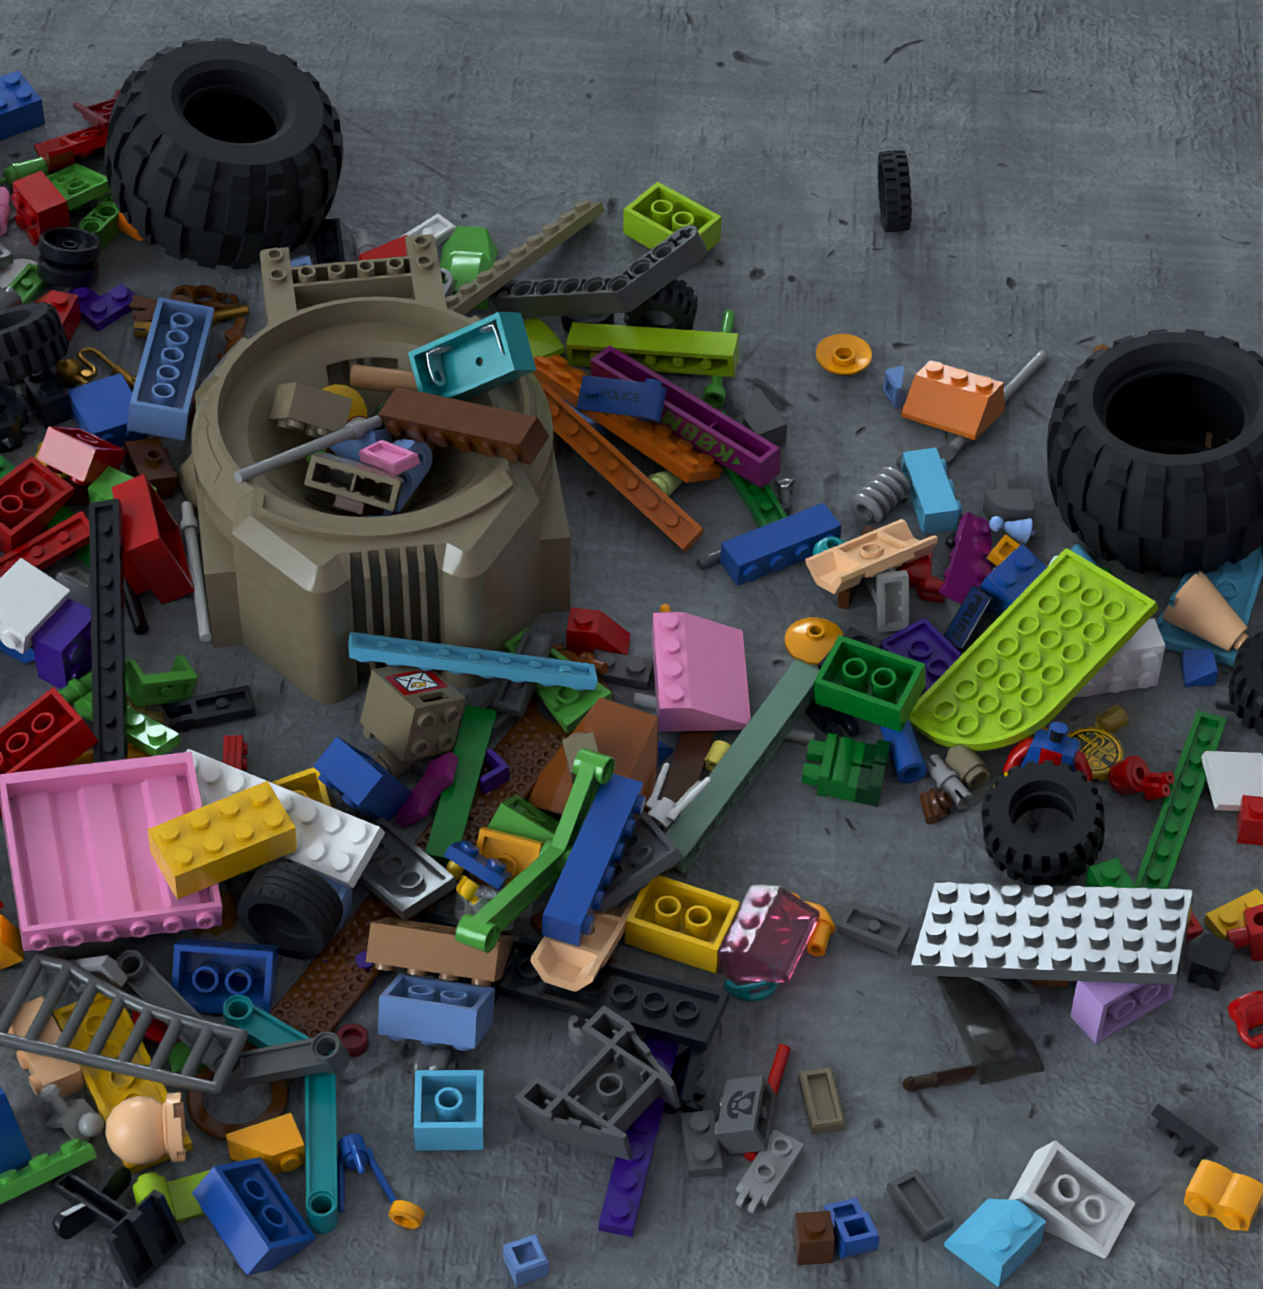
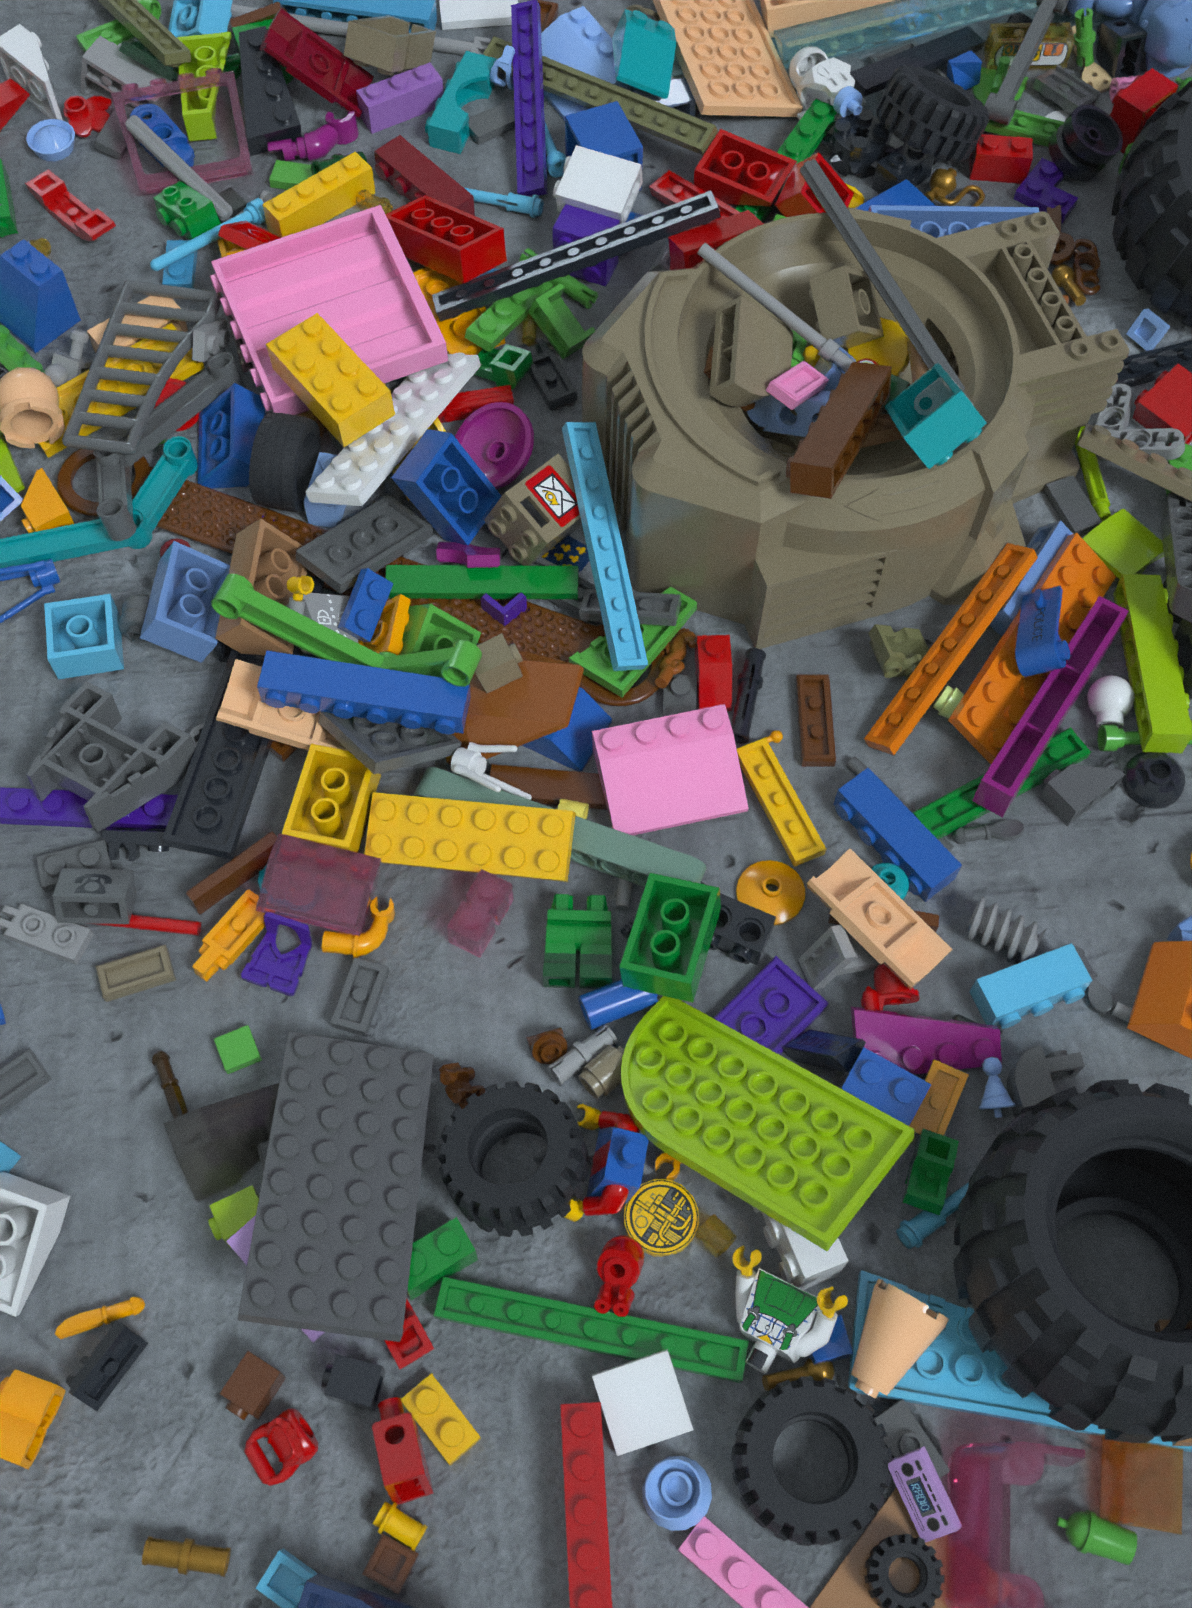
camera: 80 degrees right, 15 degrees up
(203, 731) = (504, 365): none -> green brick
(288, 372) = (875, 269): none -> dark grey axle
(292, 734) = (495, 431): none -> magenta dish
(605, 507) = (897, 651): none -> olive cylinder
(626, 619) = (753, 664): none -> black pin
(654, 580) = (815, 720): none -> reddish brown tile
(686, 380) = (1110, 700): none -> white piece
(738, 1010) = (231, 874): none -> reddish brown tile
(740, 816) = (471, 836): none -> yellow plate
(745, 382) = (1148, 789): none -> black piece
(747, 611) = (780, 802): none -> yellow plate
(797, 1017) = (230, 936): none -> light orange hinge
(822, 832) = (472, 924): none -> clear pink piece
(836, 989) = (271, 966): none -> dark purple piece
(909, 1026) = (237, 1049): none -> bright green tile
(966, 868) = (458, 1083): none -> reddish brown piece
(1065, 1029) = (233, 1213): none -> lime brick
(1140, 1141) = (97, 1317): none -> light orange piece
(1181, 683) = (780, 1315): none -> torso
(1209, 1031) = (251, 1387): none -> reddish brown brick
(1220, 686) = (817, 1371): none -> pearl gold bar

